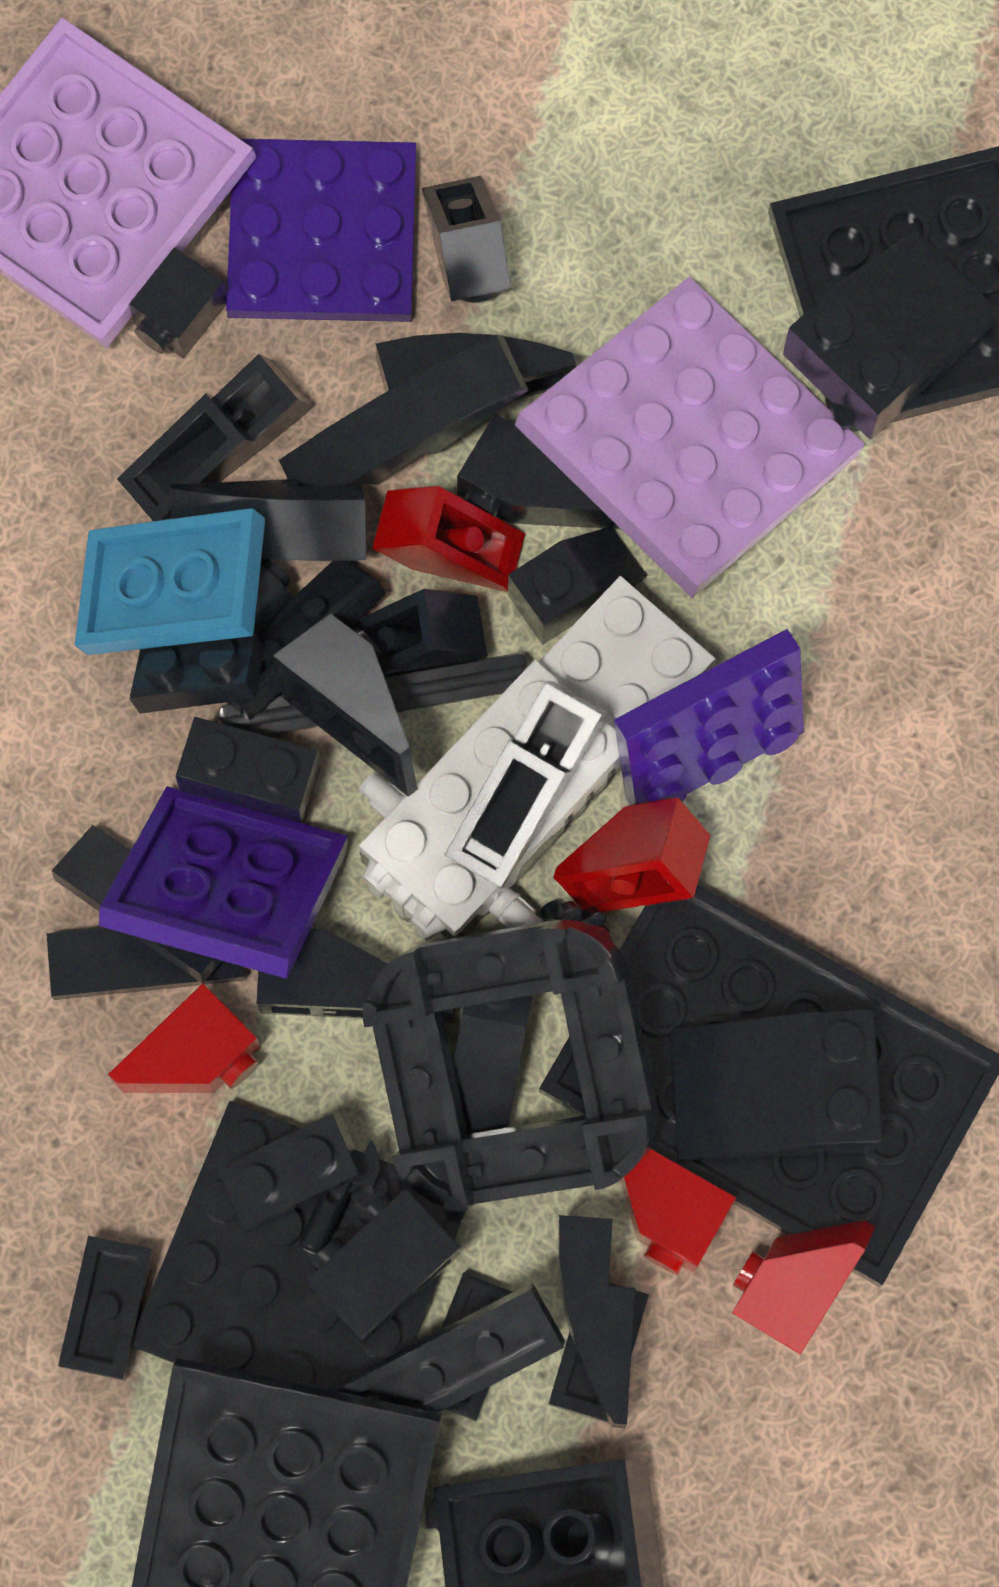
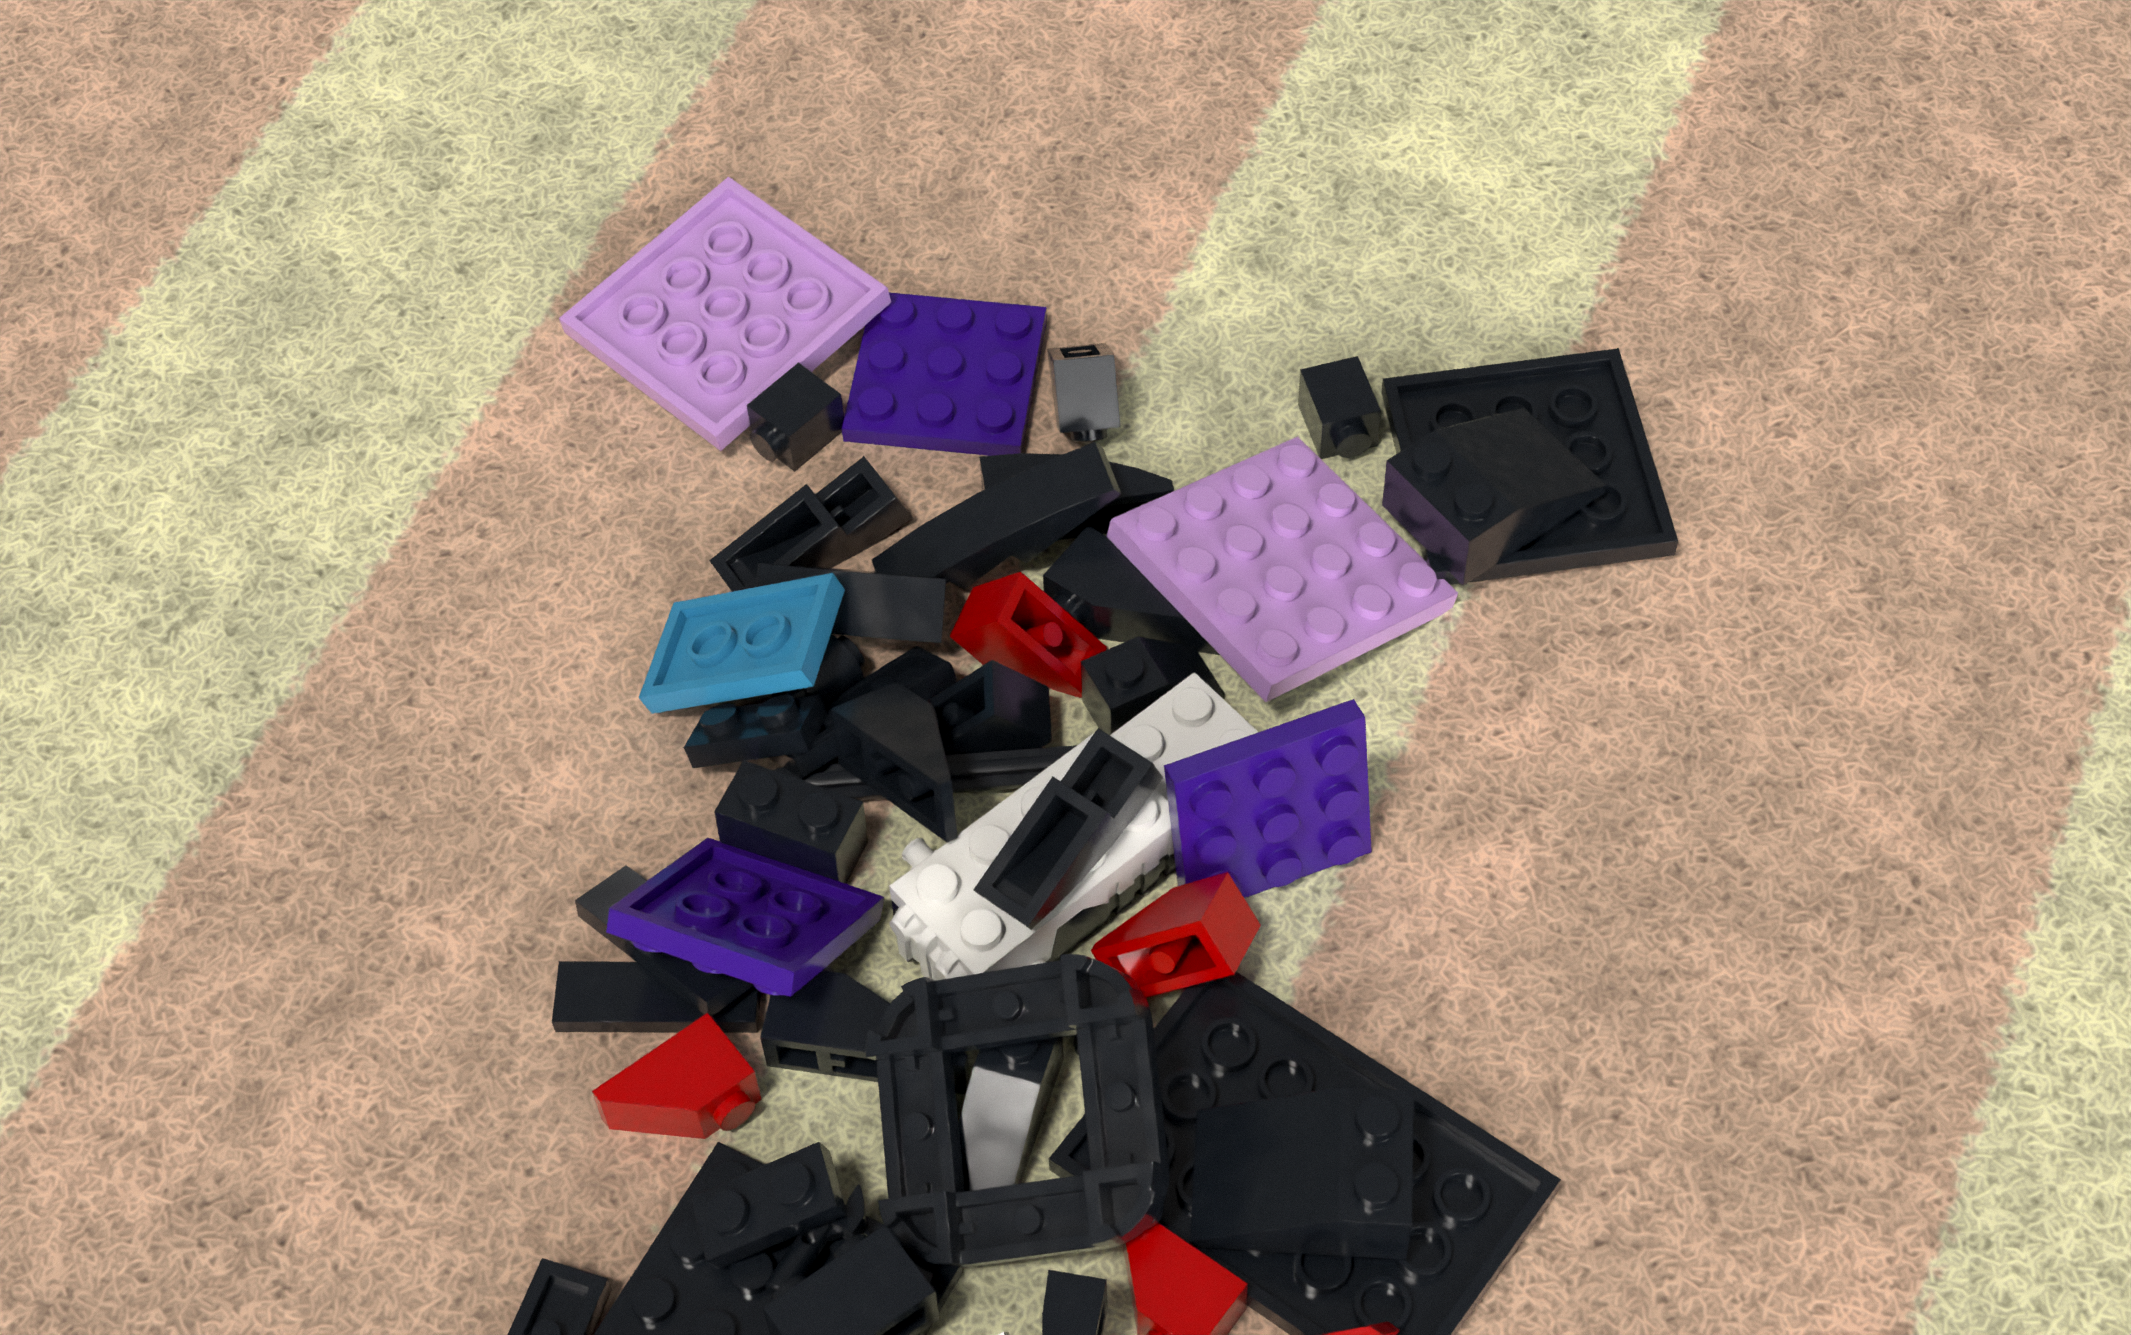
camera: 10 degrees right, 20 degrees down
(729, 242) = (1339, 408): none -> black brick

